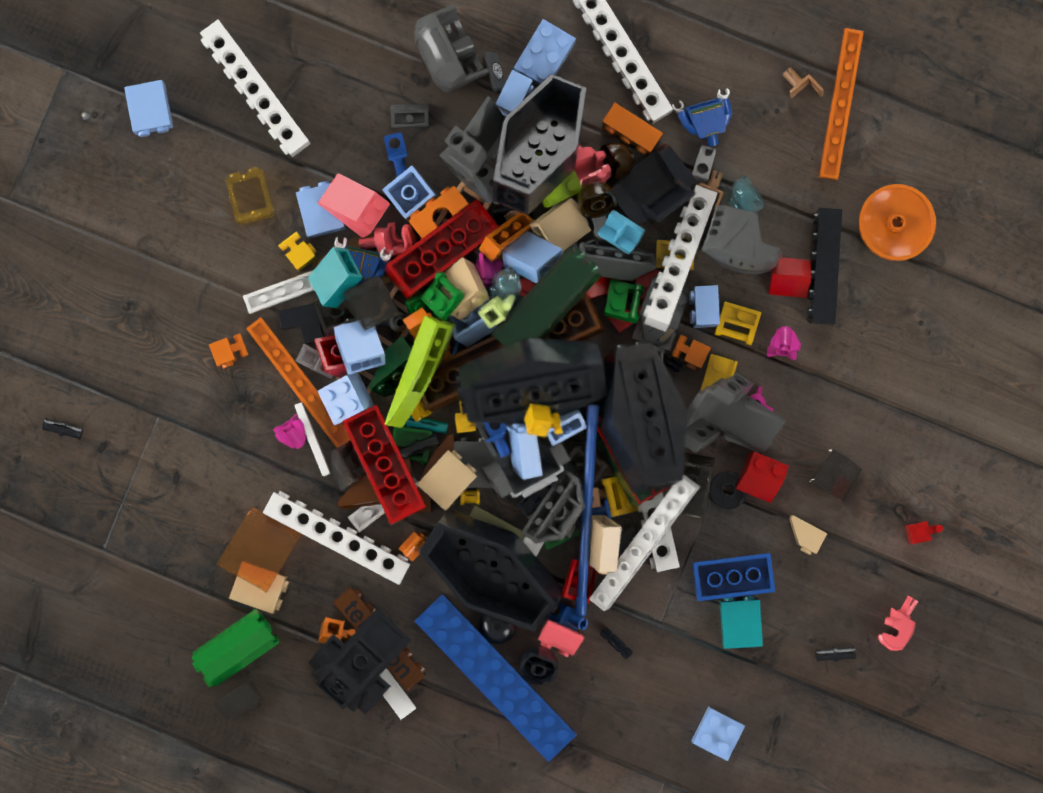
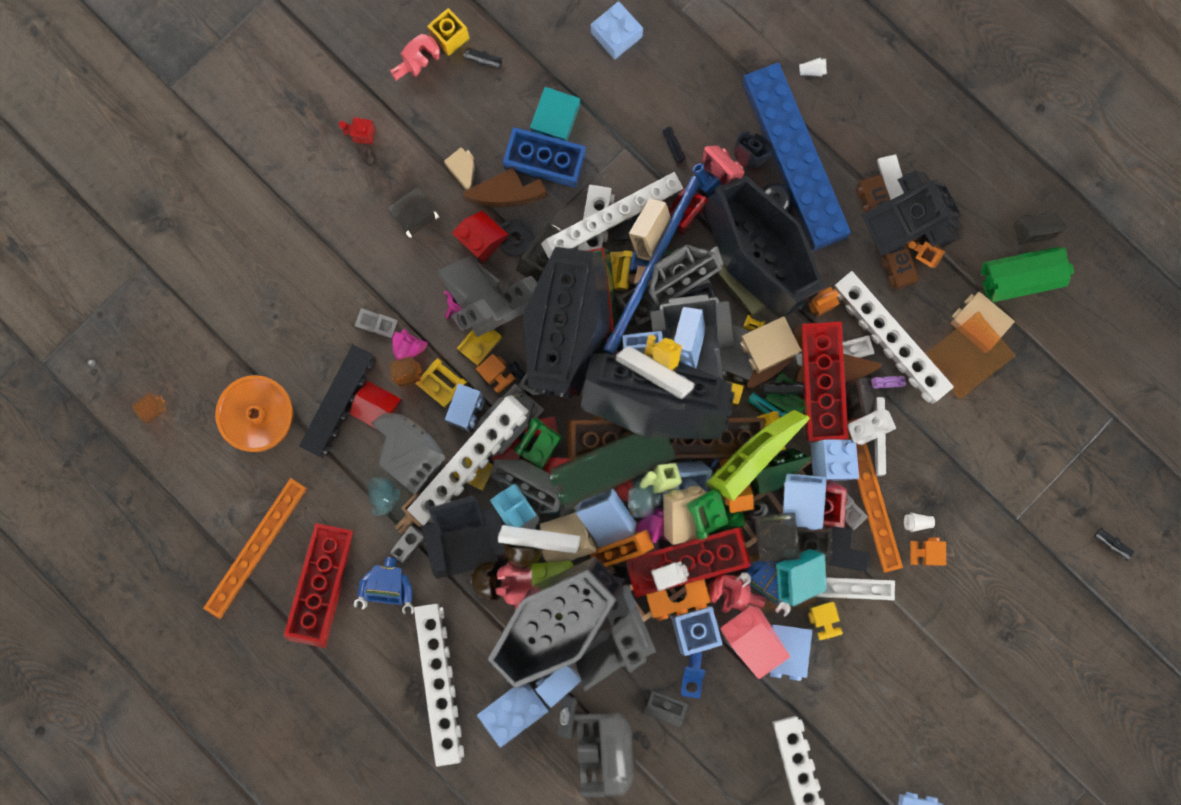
camera: 150 degrees left, 5 degrees down
(247, 375) = (918, 522): none -> white cone
(255, 214) = (840, 714): clear yellow window -> none
(291, 433) = (898, 450): dark pink brick -> none
(324, 441) = (871, 426): none -> white brick
(324, 494) = (888, 382): none -> medium lavender axle
(453, 226) = (670, 575): none -> white brick
(498, 437) = (708, 362): blue bracket -> none
(512, 774) = (814, 68): none -> white cone
(542, 399) = (655, 372): none -> white tile
(585, 211) = (539, 539): none -> white tile
(631, 129) = (461, 605): orange brick -> none
(756, 530) = (505, 191): none -> reddish brown slope
(767, 94) = (319, 586): none -> red slope
(775, 318) = (405, 371): none -> clear orange brick
(798, 83) = (285, 583): medium nougat bracket -> none
(823, 354) = (376, 323): none -> light grey slope
(879, 664) = (448, 31): none -> yellow head
(997, 189) = (149, 407): none -> clear orange brick

